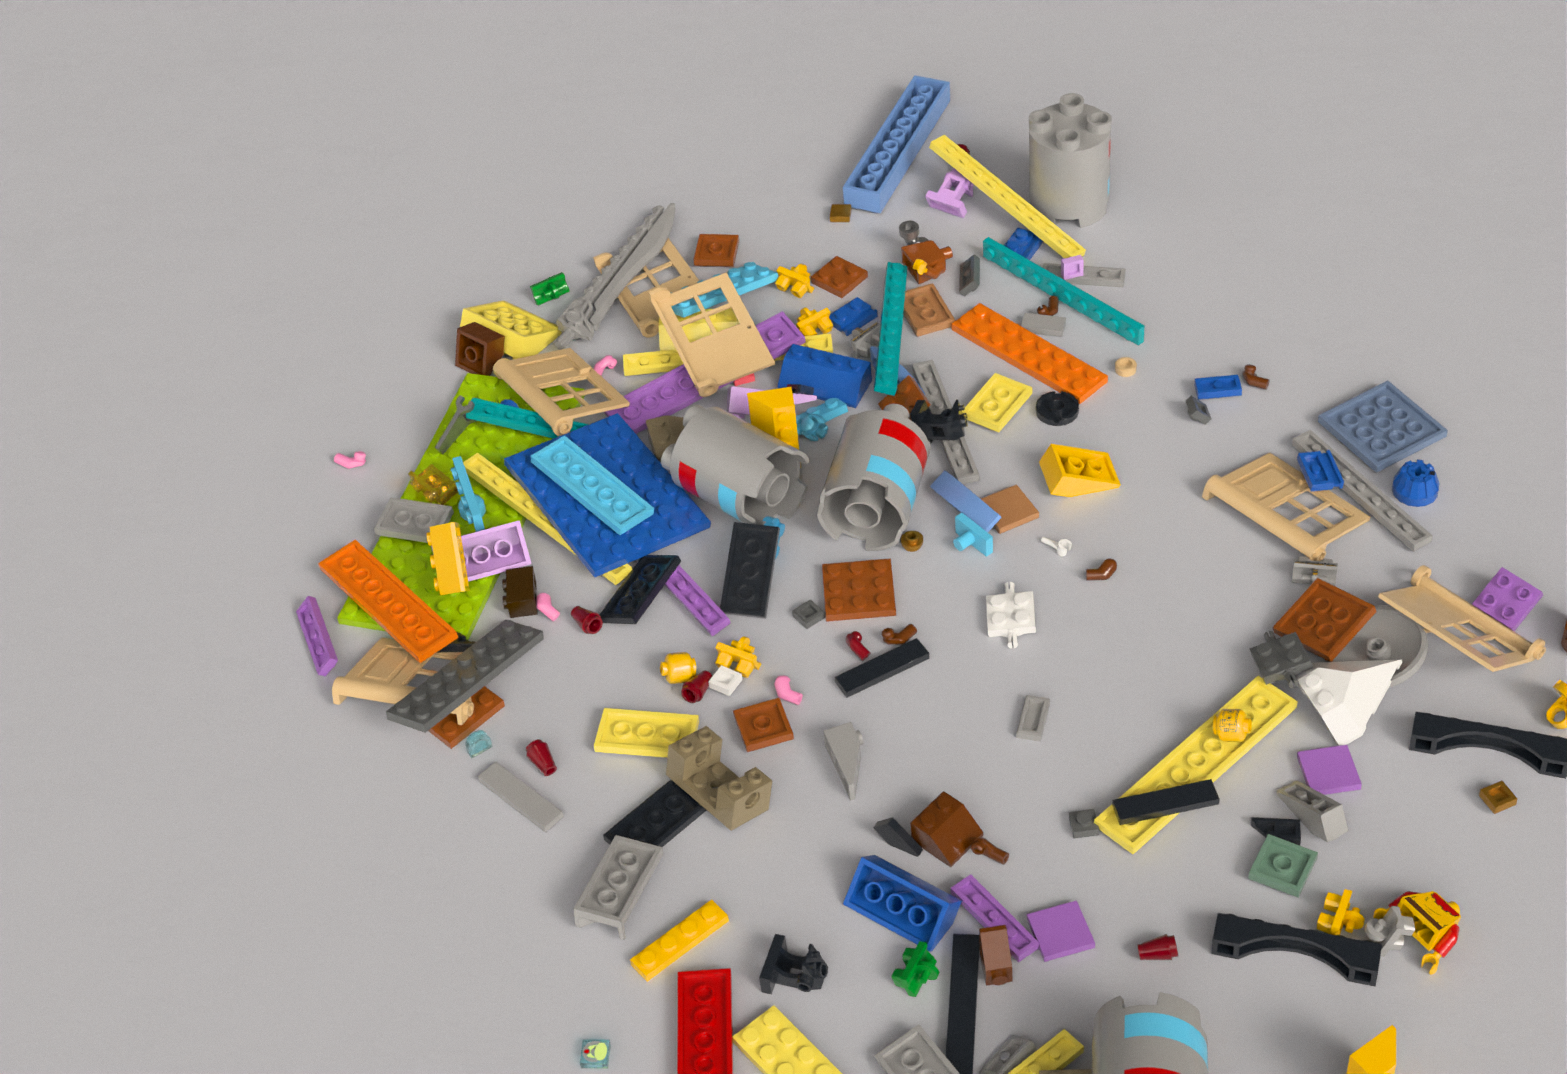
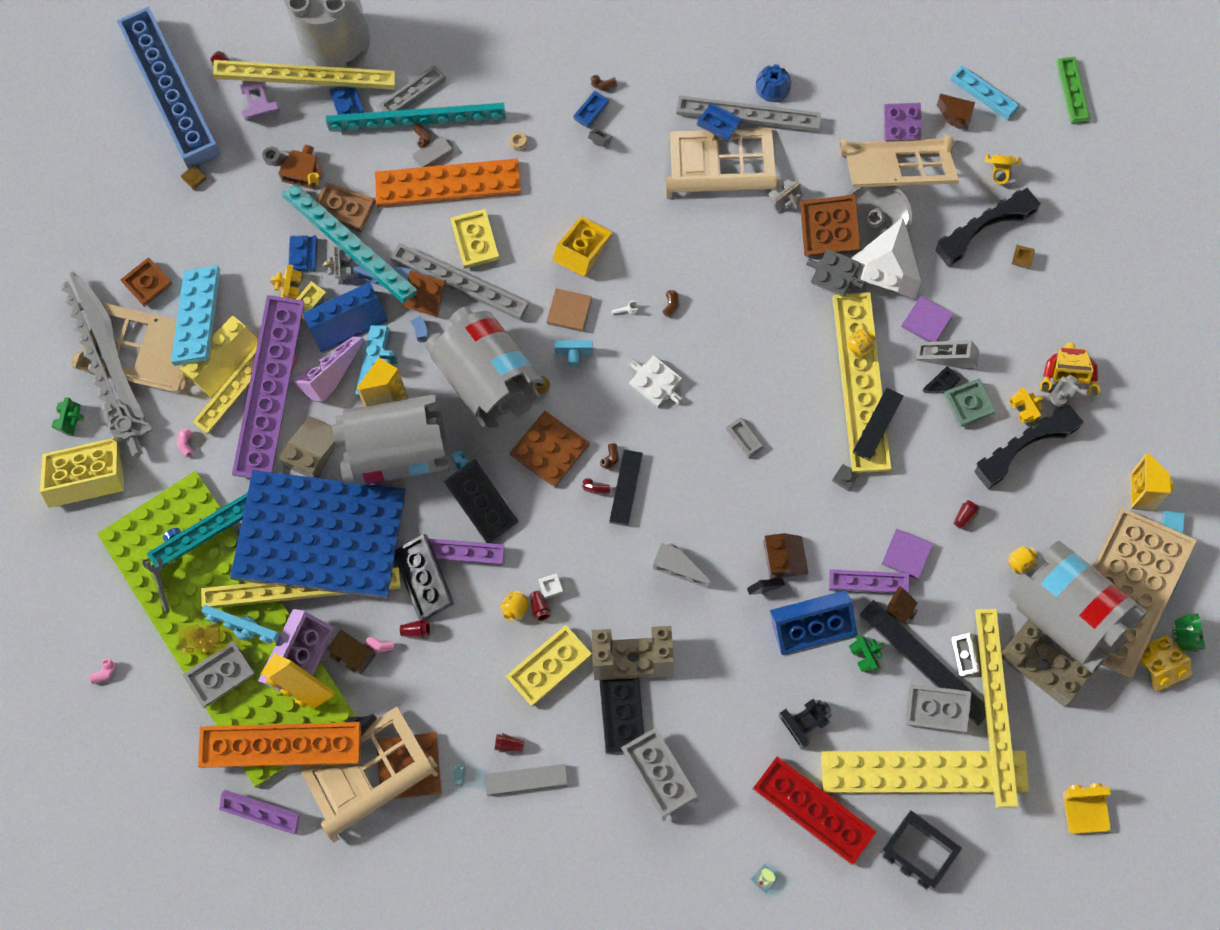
camera: 50 degrees left, 25 degrees up
(464, 676) = (404, 744): dark grey plate -> none
(478, 348) = (86, 510): reddish brown slope -> none
(551, 369) = (163, 481): tan door -> none
(592, 485) = (313, 540): medium azure plate -> none
(679, 940) = (725, 768): yellow plate -> none
(723, 354) = (268, 362): tan door -> none
(739, 654) = (531, 568): yellow hips -> none
(763, 724) = (607, 592): dark orange plate -> none
(784, 690) = (591, 558): bright pink arm -> none
(797, 277) = (225, 262): yellow hips -> none
(801, 389) = (344, 342): black tile -> none
(808, 614) = (540, 493): dark grey tile -> none
(839, 276) = (255, 230): dark orange plate -> none
(950, 420) = (470, 292): black tile -> none
(965, 501) = (544, 329): medium blue slope -> none
(969, 275) = (343, 155): dark grey plate -> none
(986, 848) = (814, 546): reddish brown arm -> none
(1057, 408) = (513, 209): black tile -> none
(1072, 267) = (406, 94): lavender plate -> none
(1382, 426) = (712, 56): sand blue plate -> none

